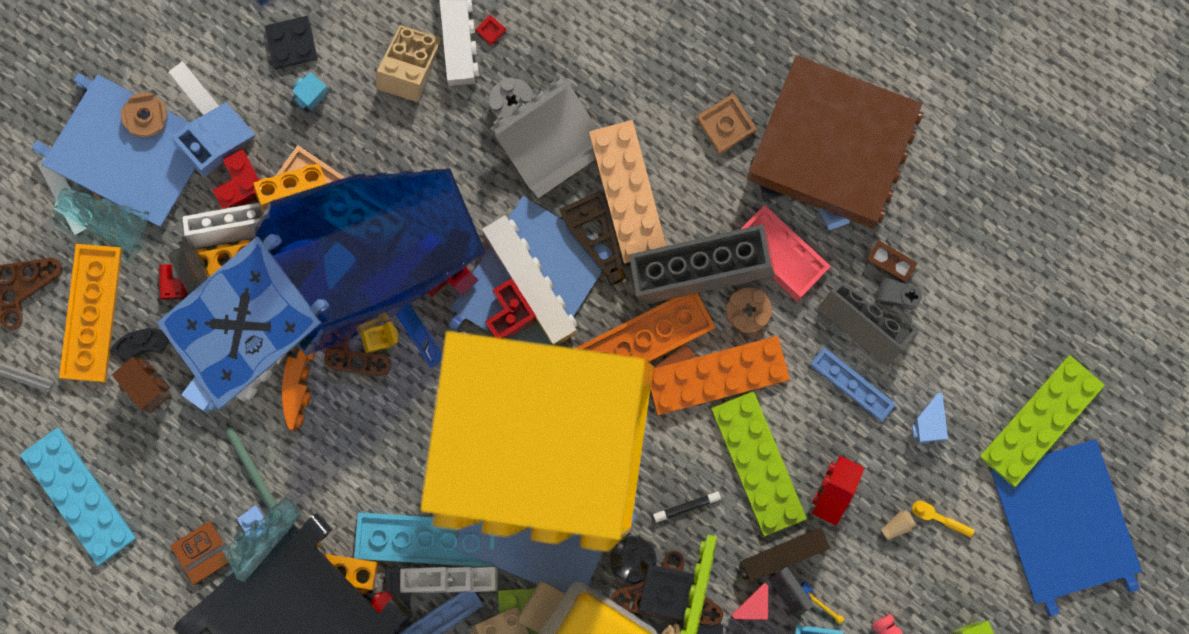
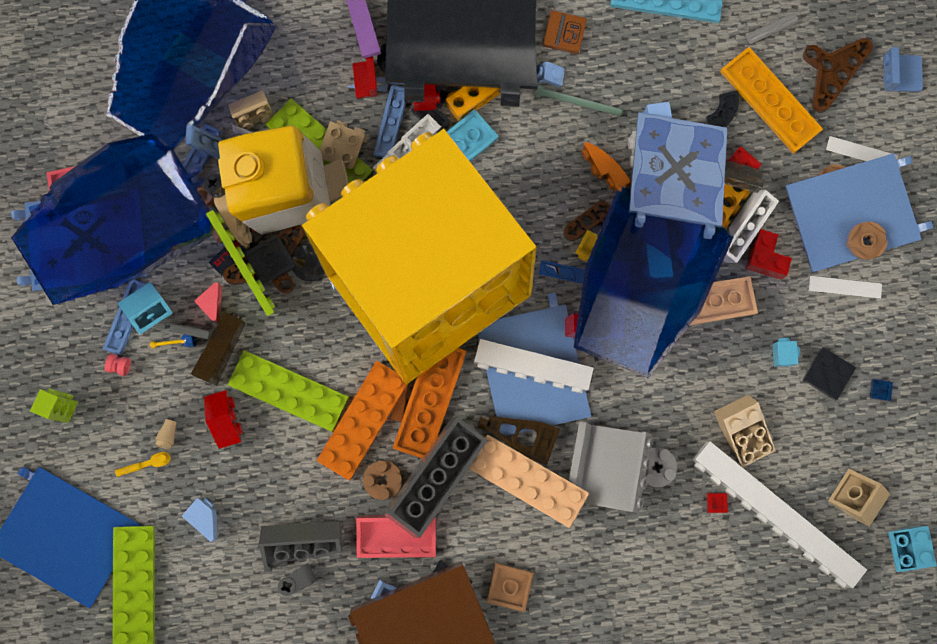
camera: 130 degrees right, 0 degrees up
(112, 221) = (814, 162): clear light blue wing -> none
(142, 384) = (697, 85): reddish brown brick -> none
(212, 138) = (812, 266): medium blue slope -> none
(255, 544) = (537, 59): clear light blue wing -> none
(278, 184) = (723, 281): light orange brick -> none
(515, 312) = (520, 334): red brick -> none
(688, 506) = (307, 324): black bar -> none
(852, 384) = (274, 495): medium blue tile -> none
(891, 261) = (321, 598): reddish brown piece -> none

